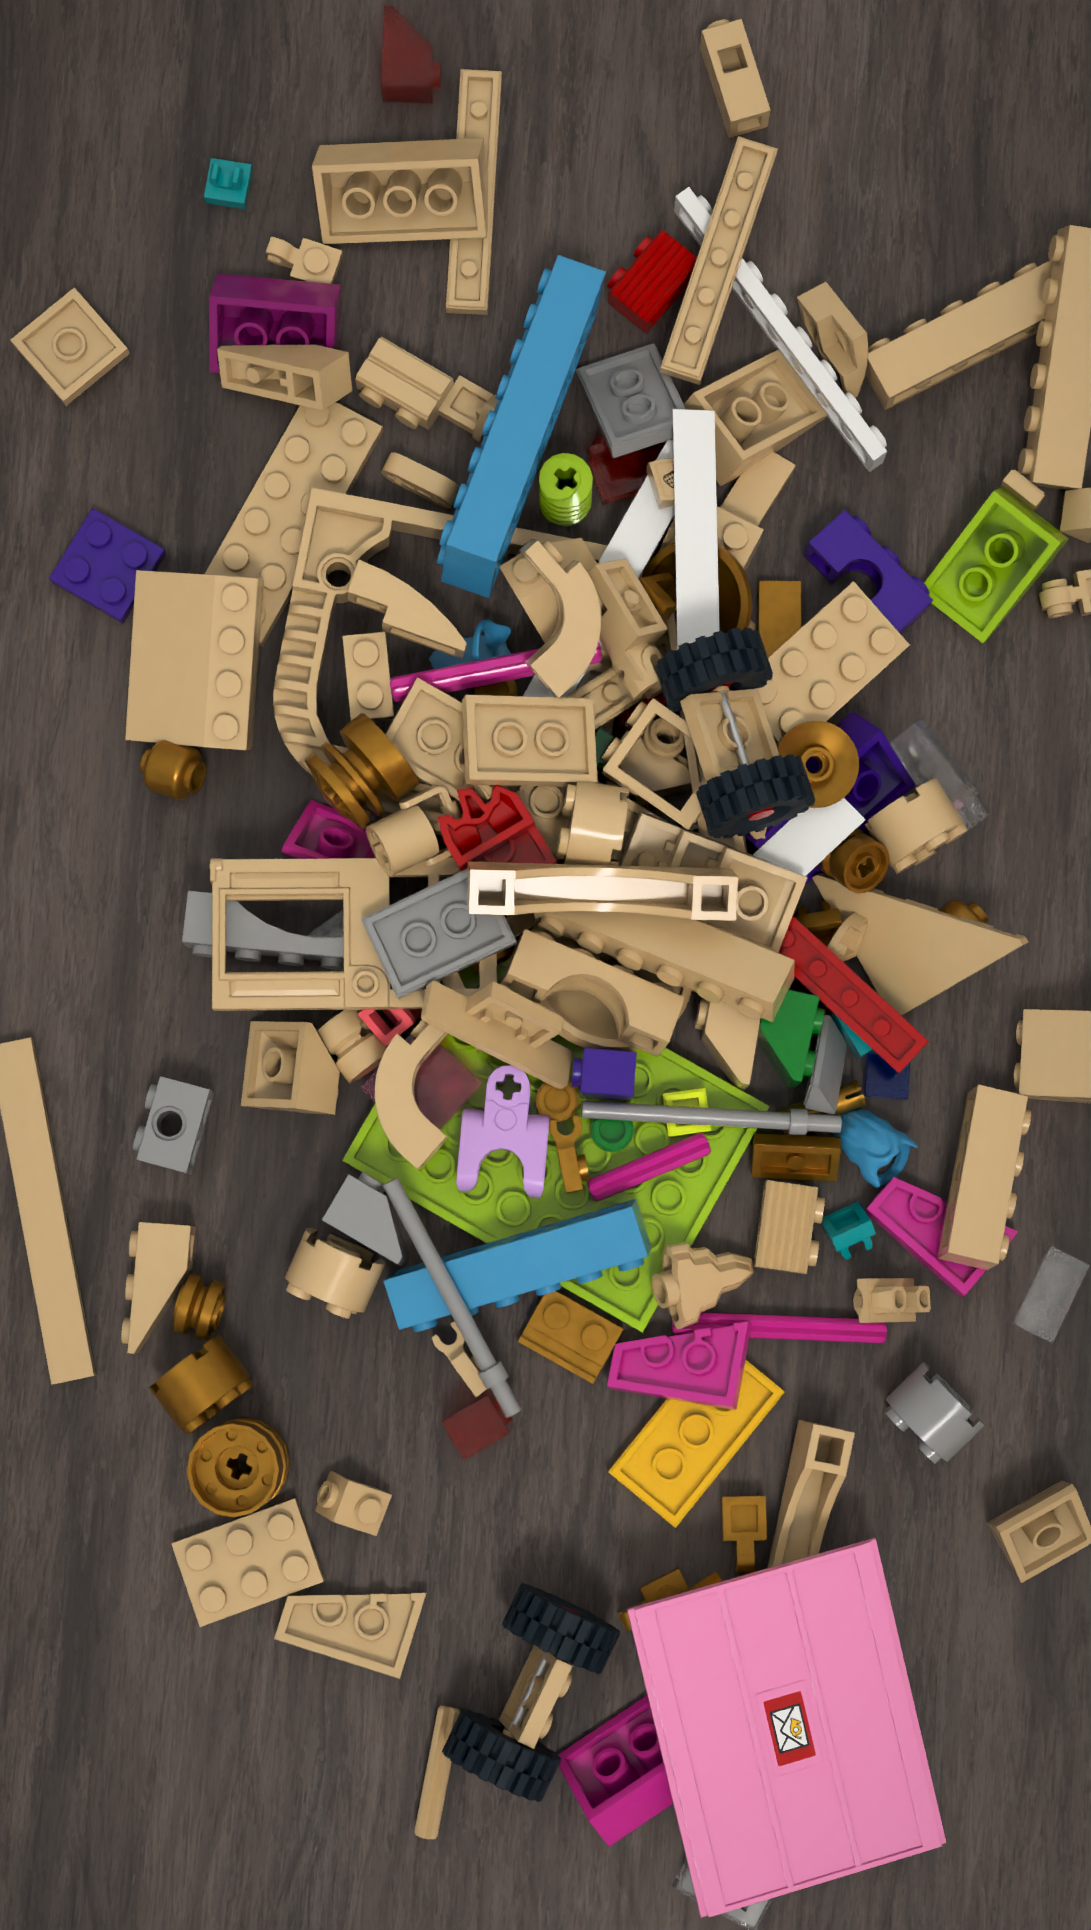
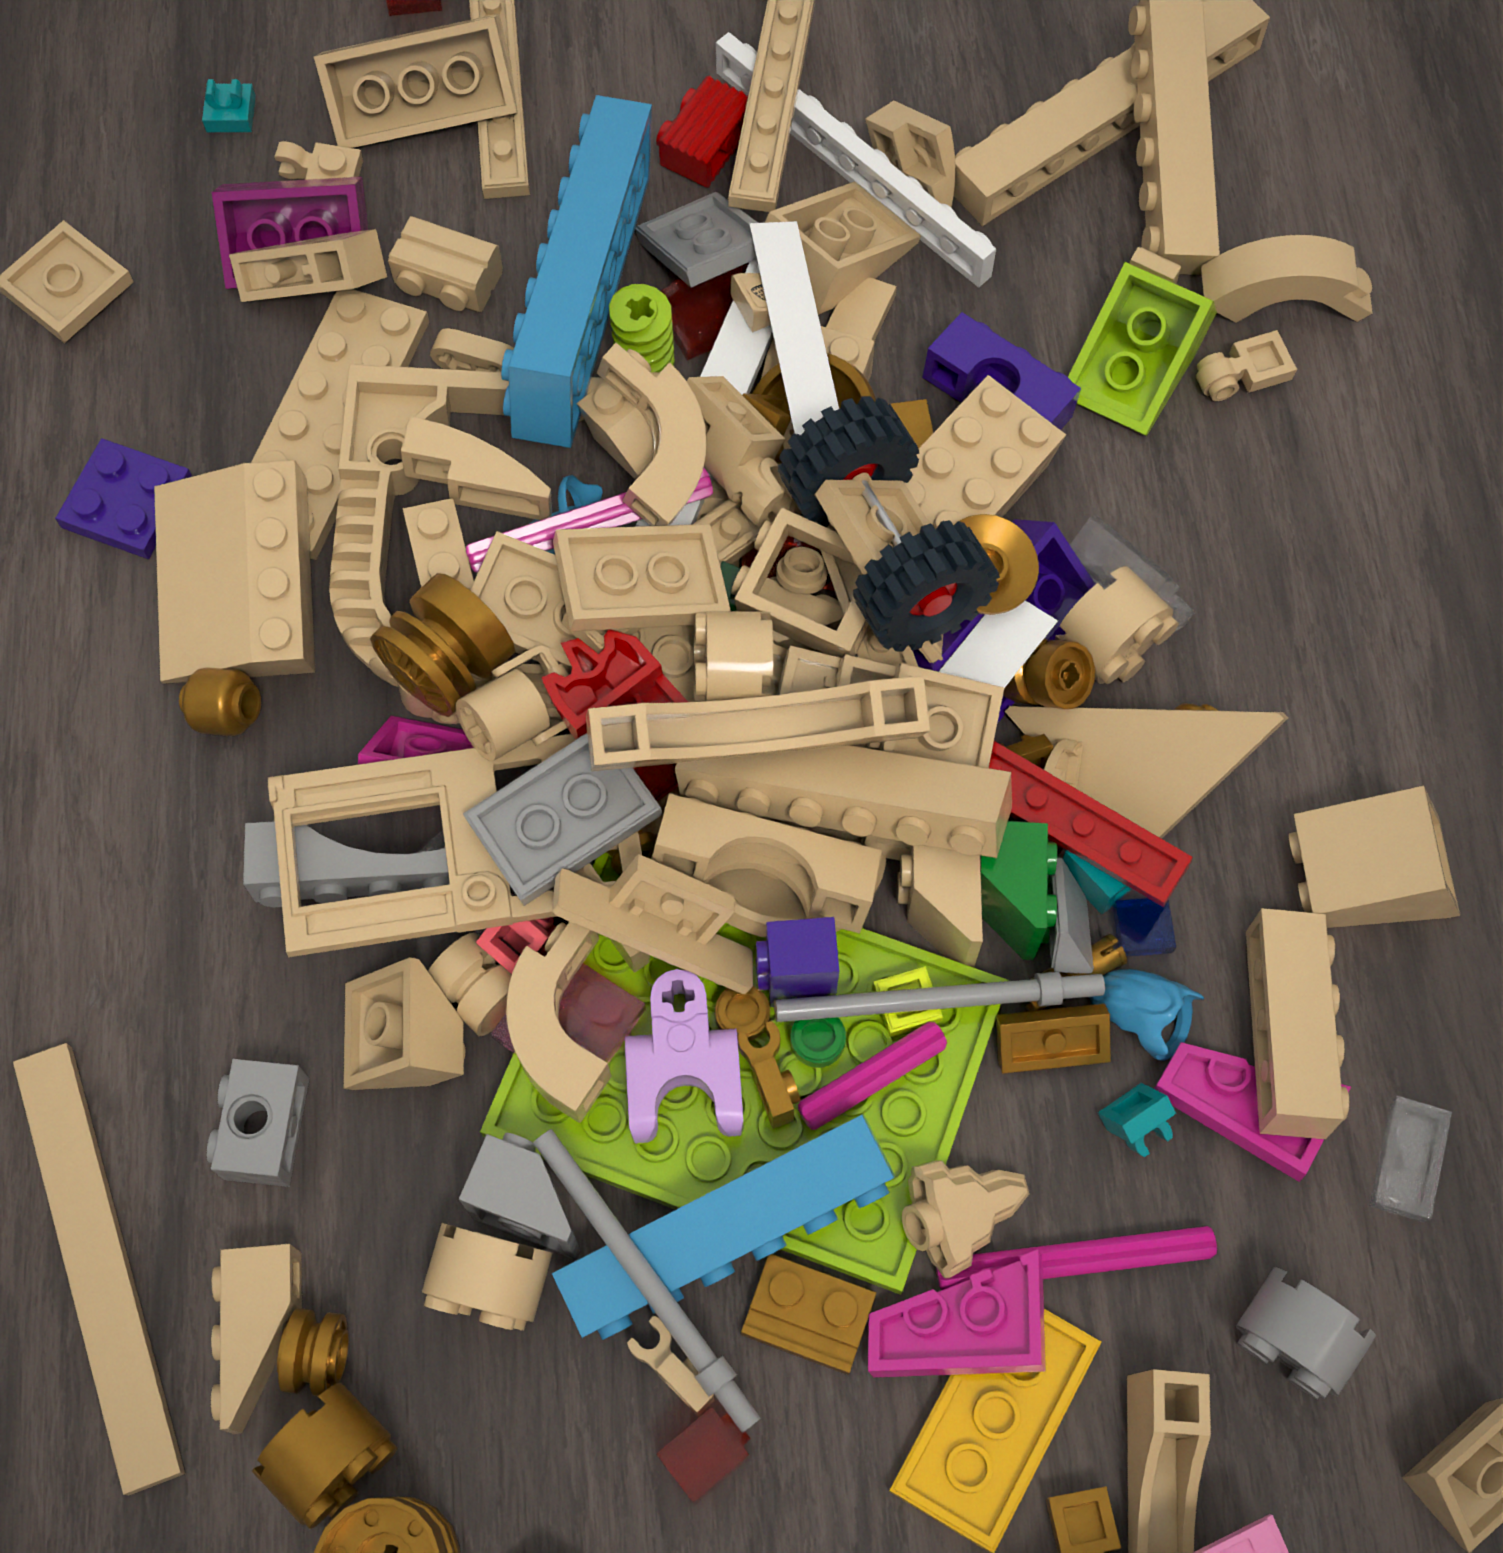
camera: 10 degrees left, 15 degrees down
(468, 407) = (511, 279): tan tile -> none
(787, 1227) = (1061, 1127): tan brick -> none
(890, 1300) = (1211, 1196): tan hips -> none

